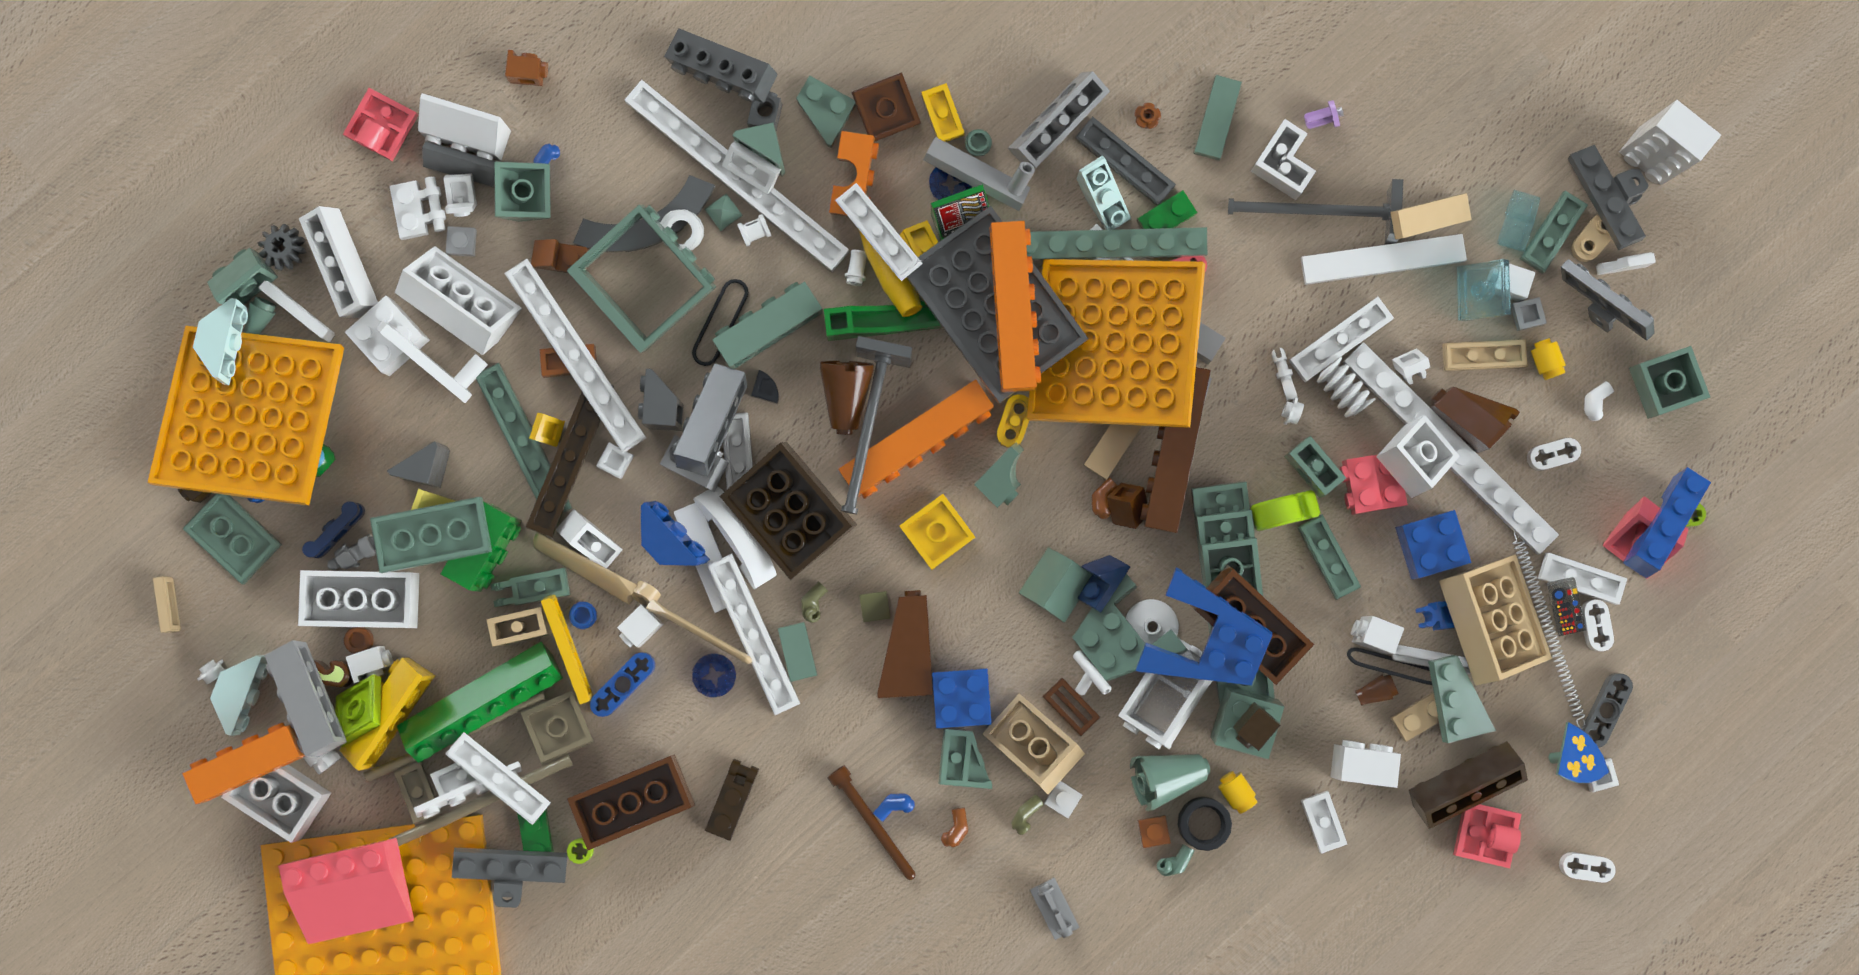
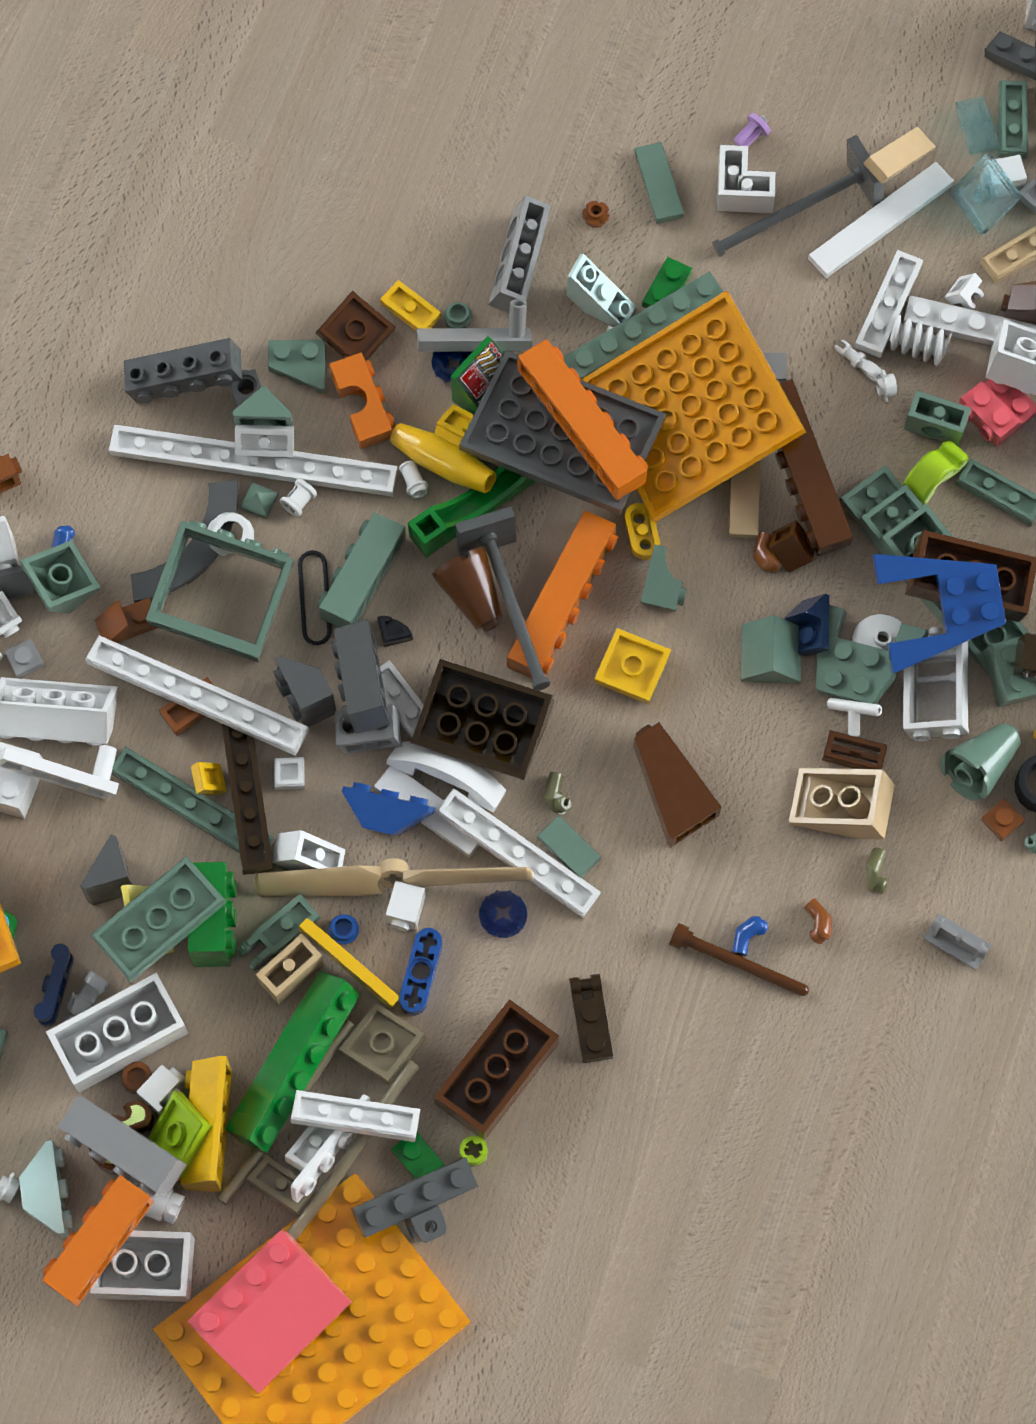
camera: 30 degrees left, 15 degrees down
(874, 606) = (615, 764): olive slope -> none
(878, 232) = (418, 427): white tile -> none
(961, 698) = (750, 798): blue brick -> none
(961, 761) = (785, 856): sand green wing -> none
(1063, 799) = (901, 838): white plate -> none
(1125, 161) = (611, 262): dark grey tile -> none

